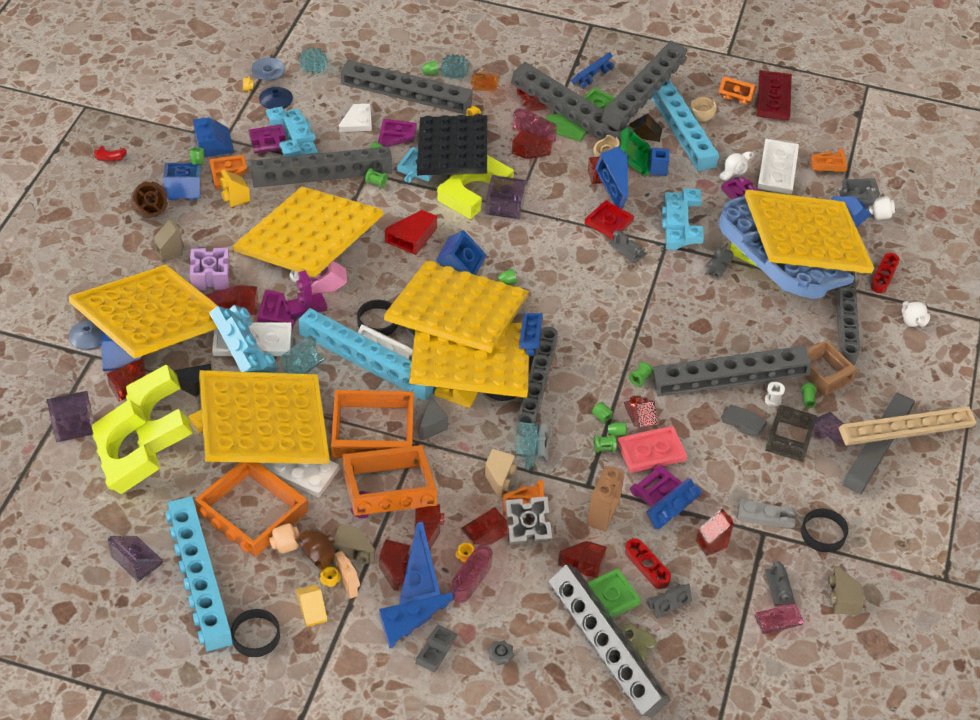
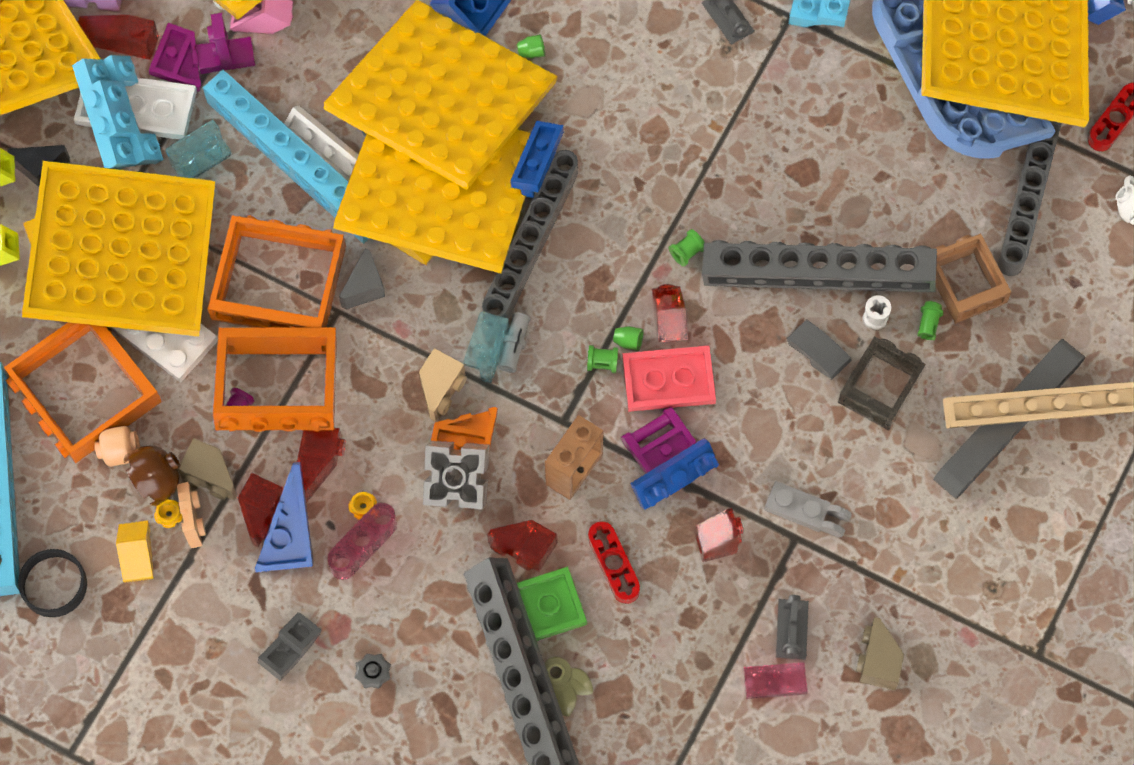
camera: 15 degrees right, 20 degrees up
(376, 304) = (311, 70): black tyre -> none
(404, 618) = (256, 592): blue wing -> none
(486, 528) = (394, 475): clear red slope -> none
(602, 412) = (613, 304): bright green hose -> none
(672, 600) = (642, 622): dark grey hinge -> none
(719, 264) = (854, 68): dark grey hinge -> none
(828, 426) = (936, 384): clear purple plate -> none
(830, 514) = (884, 520): black tyre -> none

